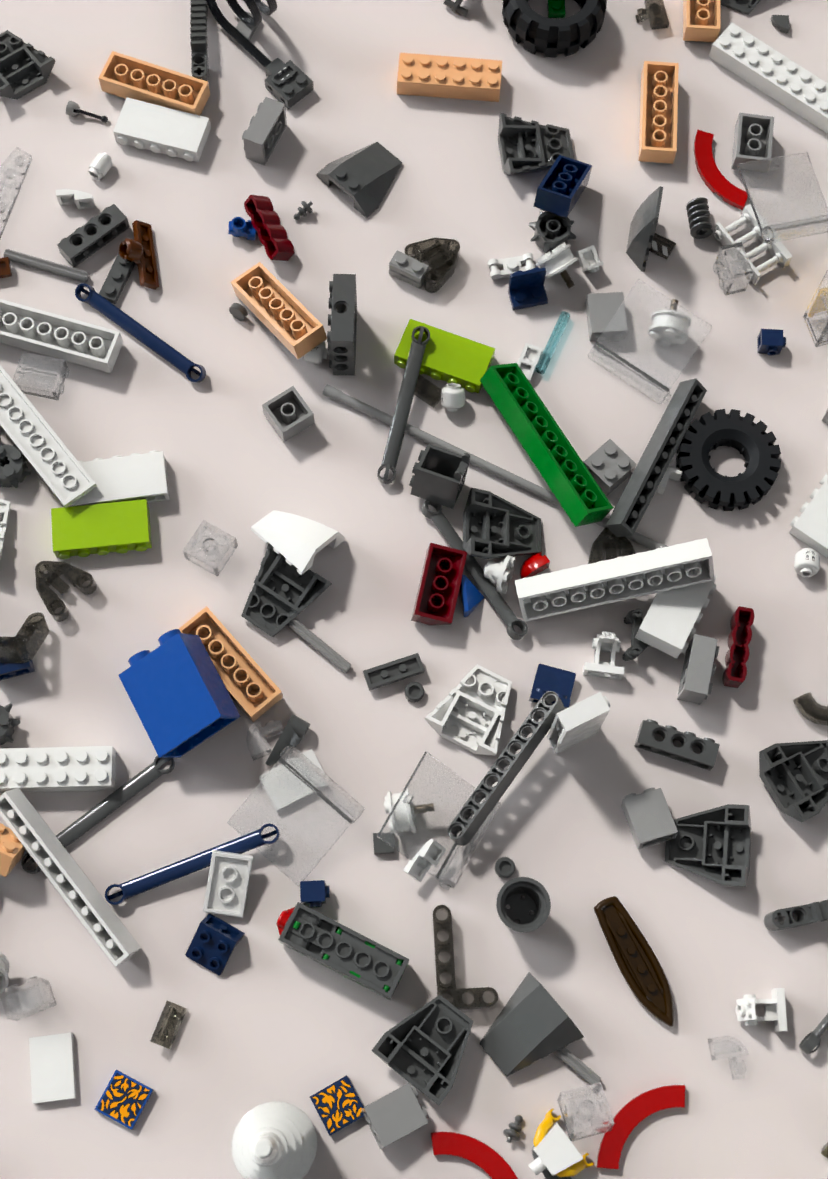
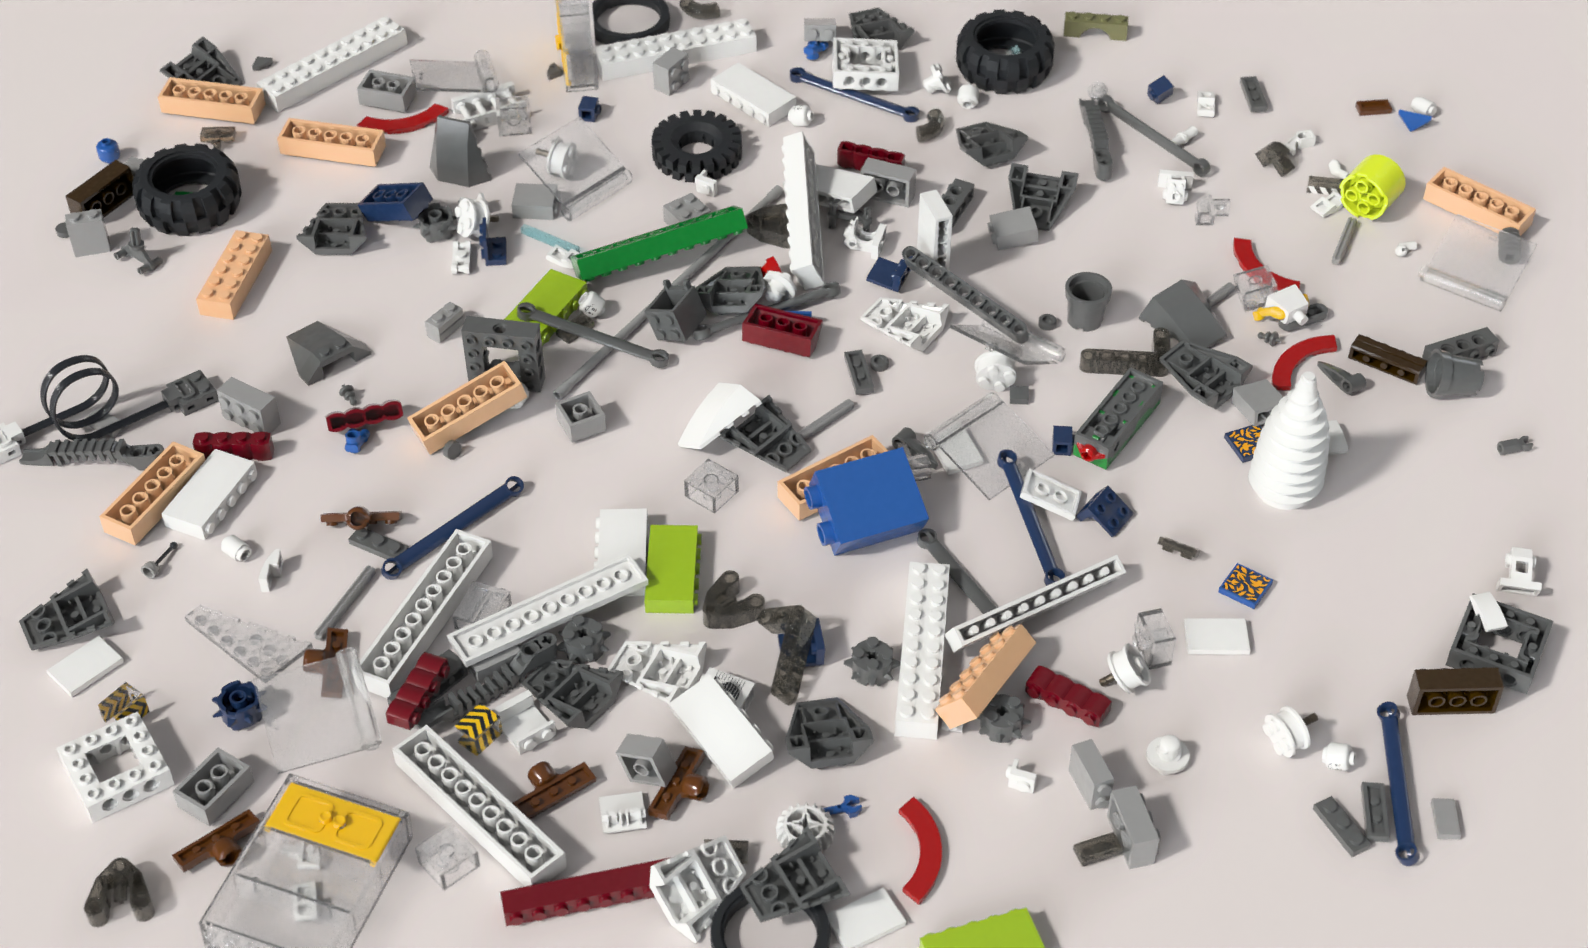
camera: 80 degrees left, 25 degrees down
(103, 234) = (322, 557): dark grey brick -> none
(220, 133) = (241, 444): none -> dark red brick
(430, 849) = (1040, 354): white slope -> none
(441, 255) = (436, 295): clear smoke connector -> none
(635, 959) = (1130, 252): dark brown piece -> none
(656, 458) = (690, 179): dark grey brick -> none

